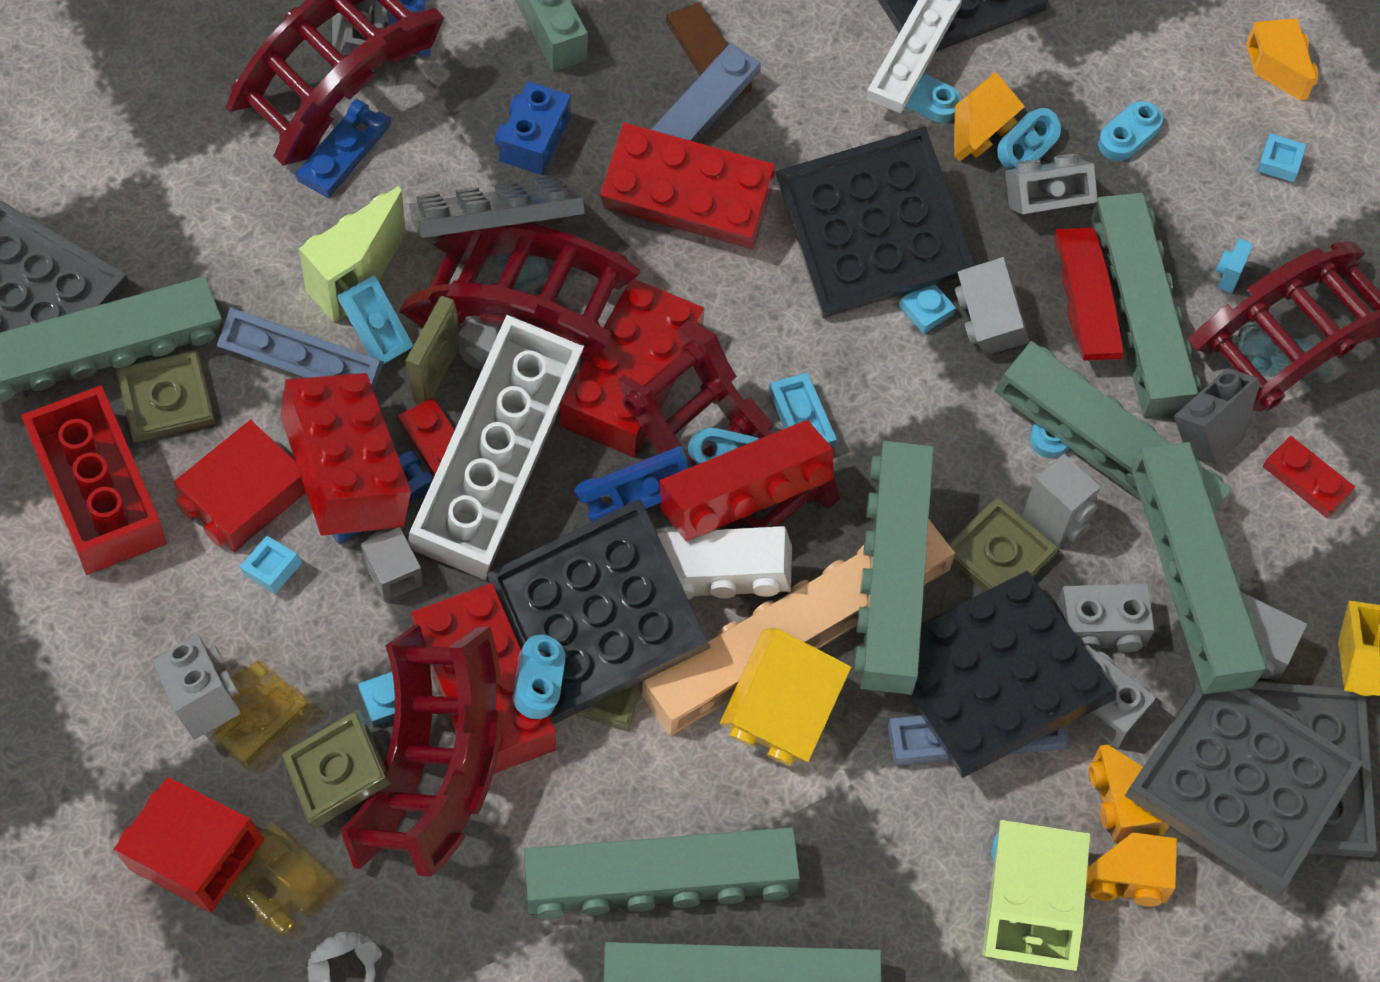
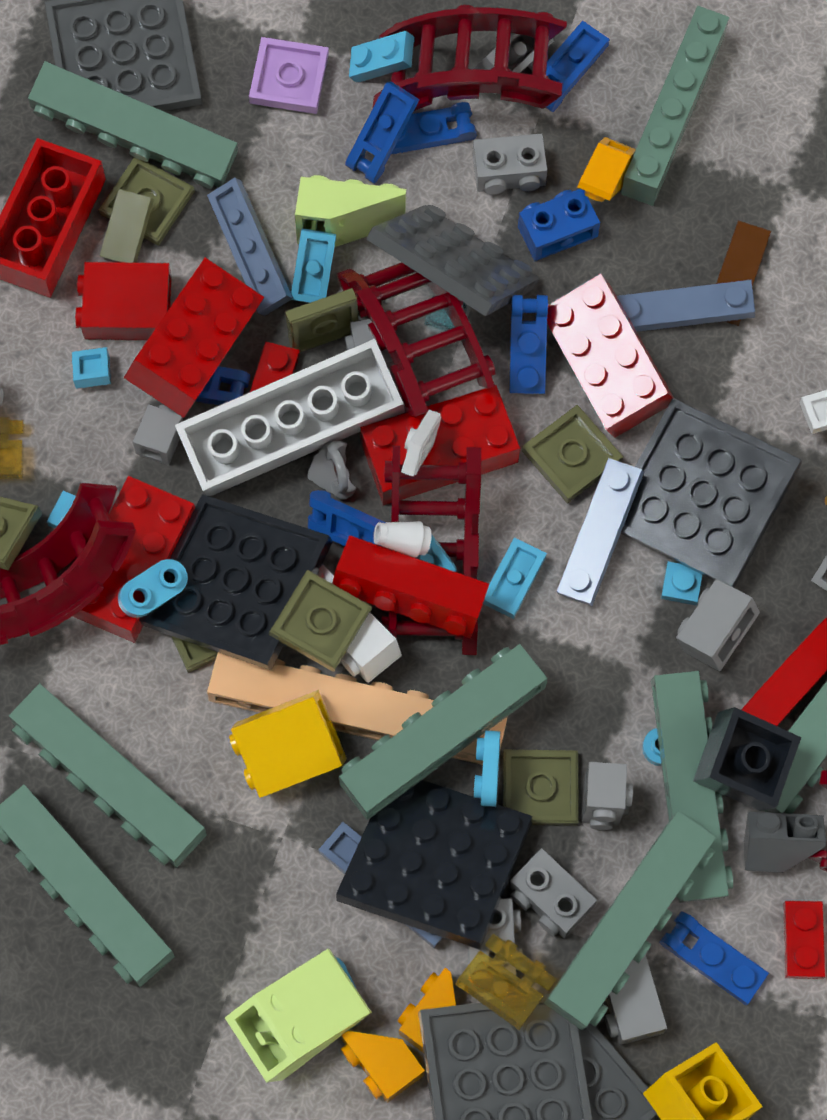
camera: 50 degrees right, 10 degrees up
(175, 426) = (126, 227): none -> olive tile
(181, 198) = (289, 75): none -> lavender plate
(248, 119) = (381, 56): none -> medium azure plate
(317, 169) = (382, 131): none -> blue plate
(443, 115) = (509, 163): none -> light grey brick
(531, 53) = (606, 170): none -> light orange slope
(568, 468) = (330, 472): none -> light grey piece
(618, 226) = (528, 345): none -> blue plate
(638, 357) = (420, 442): none -> white plate
(705, 441) = (404, 537): none -> white cone
(711, 567) = (320, 620): none -> olive tile
(740, 285) = (571, 453): none -> olive plate
(830, 320) = (600, 532): none -> plate
(954, 550) = (487, 785): none -> medium azure plate
(1141, 368) = (747, 759): none -> black brick
(1167, 710) = (499, 988): none -> clear yellow plate
(1277, 549) = (715, 959): none -> blue plate

